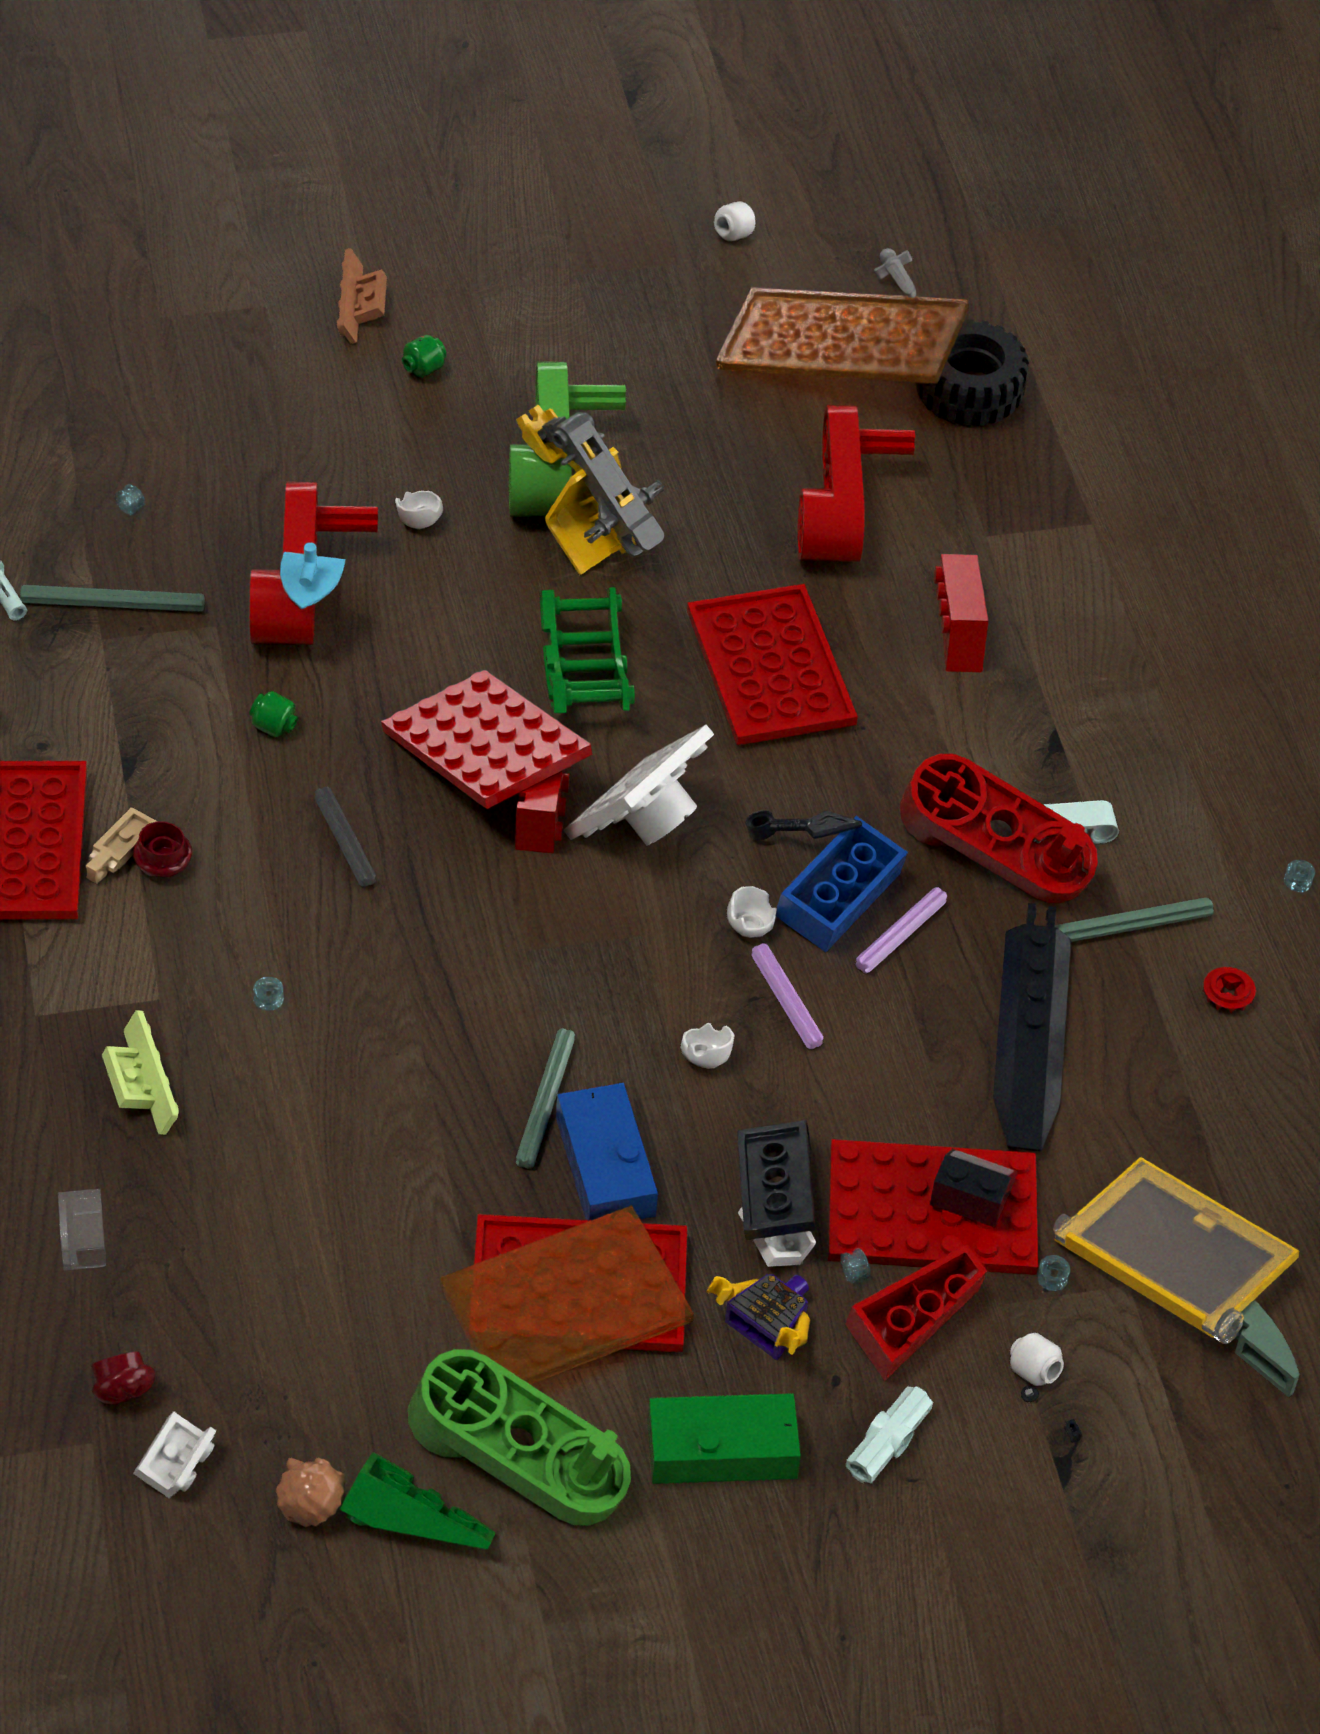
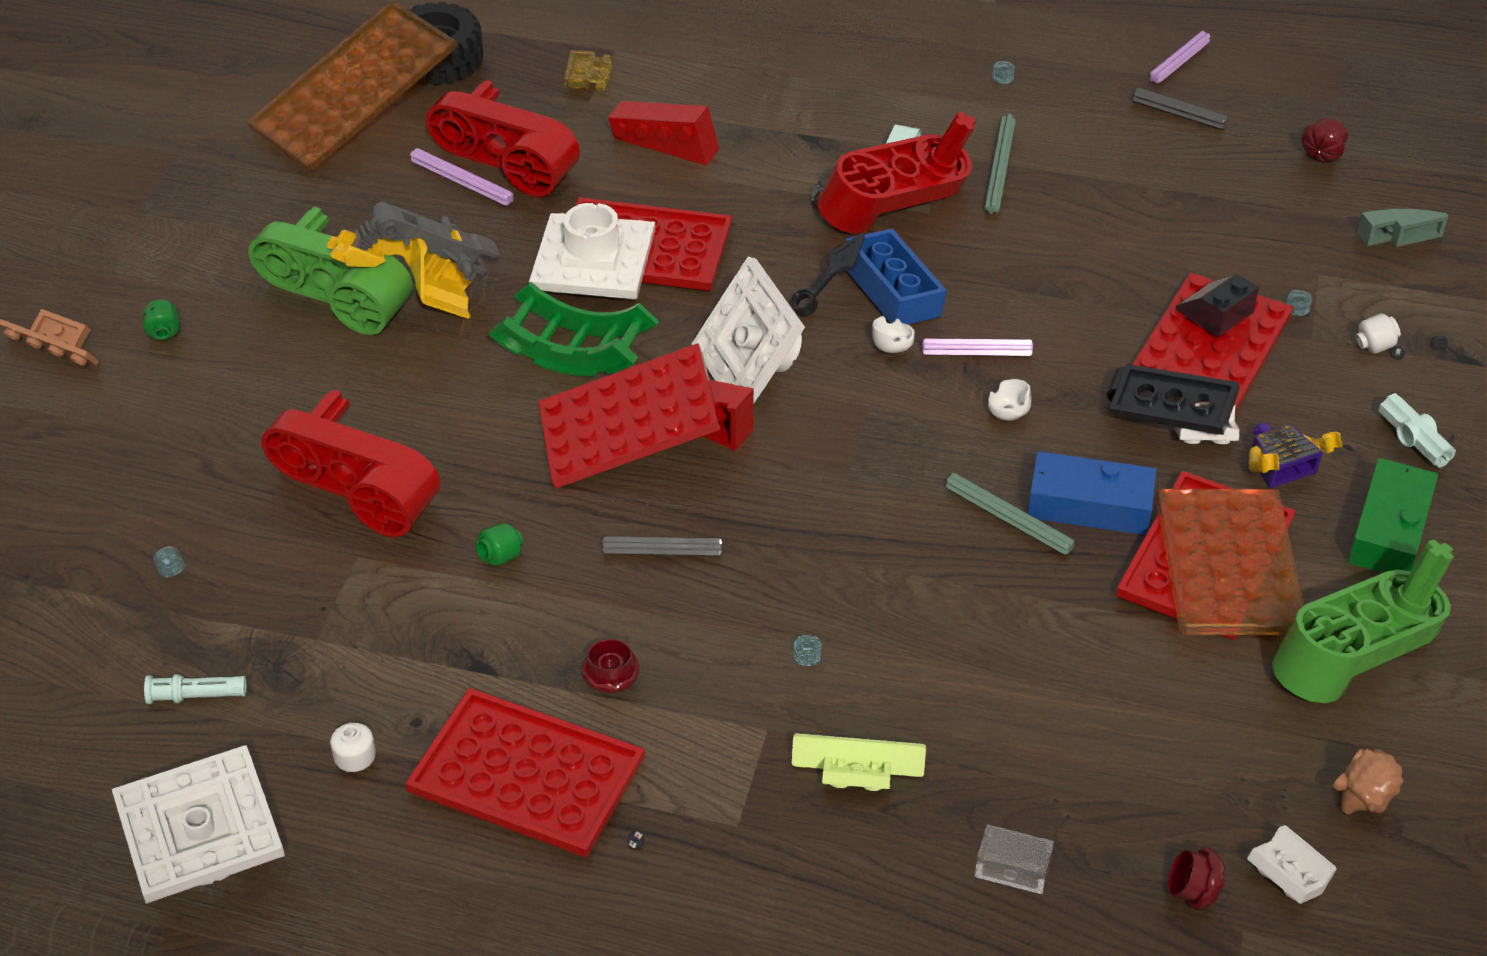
camera: 60 degrees left, 5 degrees down
(112, 598) = (276, 614): sand green axle -> none
(116, 845) = (579, 696): tan hinge -> none
(309, 576) = (398, 444): medium azure shield -> none
(390, 1501) = (1397, 728): green wedge -> none
(419, 509) = (333, 376): white hair -> none
(713, 626) = (593, 253): none -> white piece
(734, 221) = (167, 105): white head -> none
(783, 483) = (462, 176): none -> lavender axle
(855, 1265) = (1252, 402): clear light blue bush -> none
(894, 265) = (293, 41): light grey sword -> none
(901, 930) = (946, 268): lavender axle -> none
(910, 1311) = (1314, 375): red wedge -> none
(1026, 505) = (586, 68): none -> clear yellow plate
(1031, 1030) = (1074, 237): black hinge -> none
(1177, 1248) = (1310, 232): clear door -> none
(1231, 979) = (1096, 136): red gear -> none

